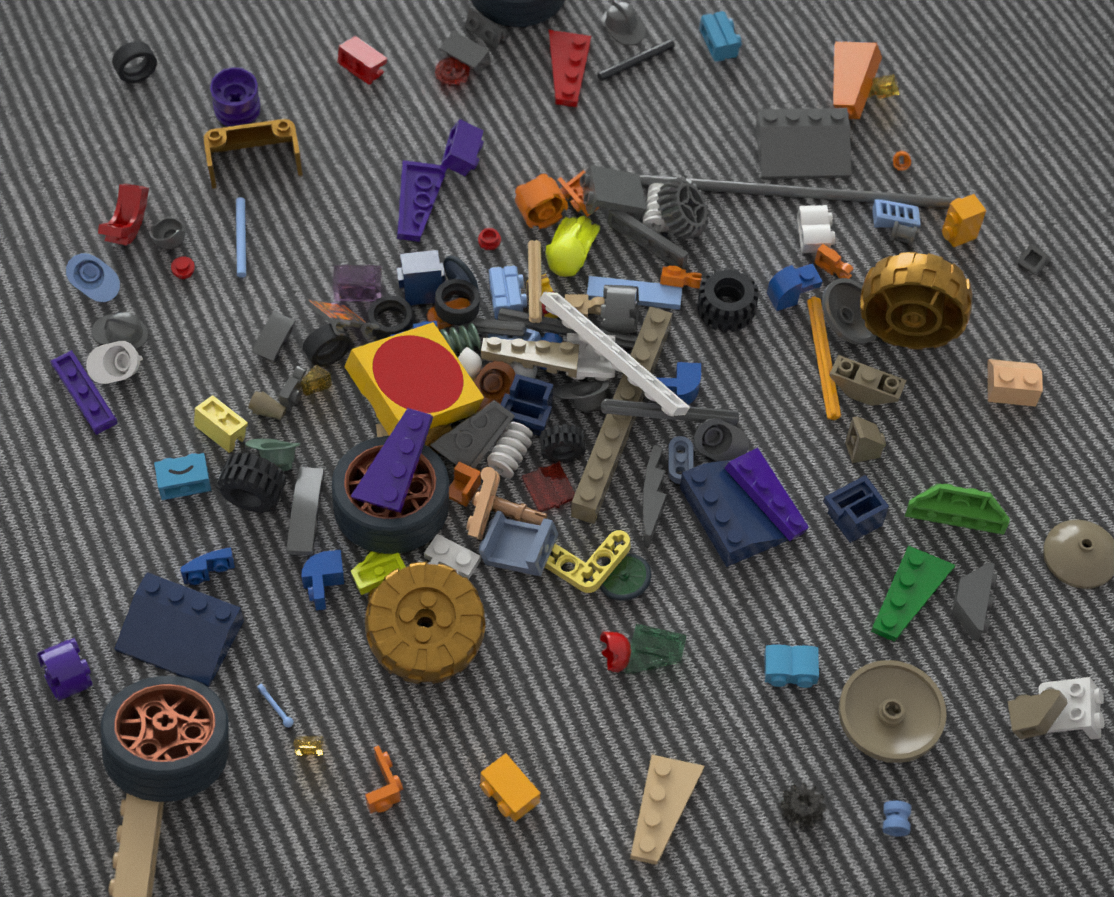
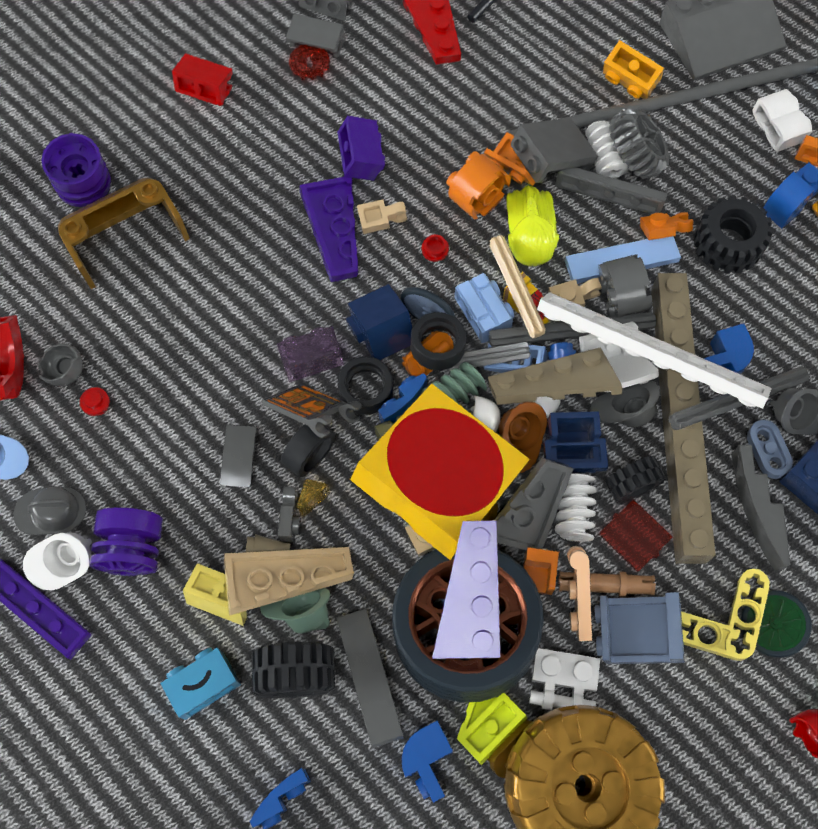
camera: 15 degrees left, 10 degrees up
(167, 364) = (125, 546): none -> dark purple wheel
(241, 237) = (149, 340): light blue bar -> none
(266, 420) = (273, 576): none -> tan wing
(454, 201) = (376, 216): none -> tan plate
(708, 155) = (632, 70): none -> light orange brick

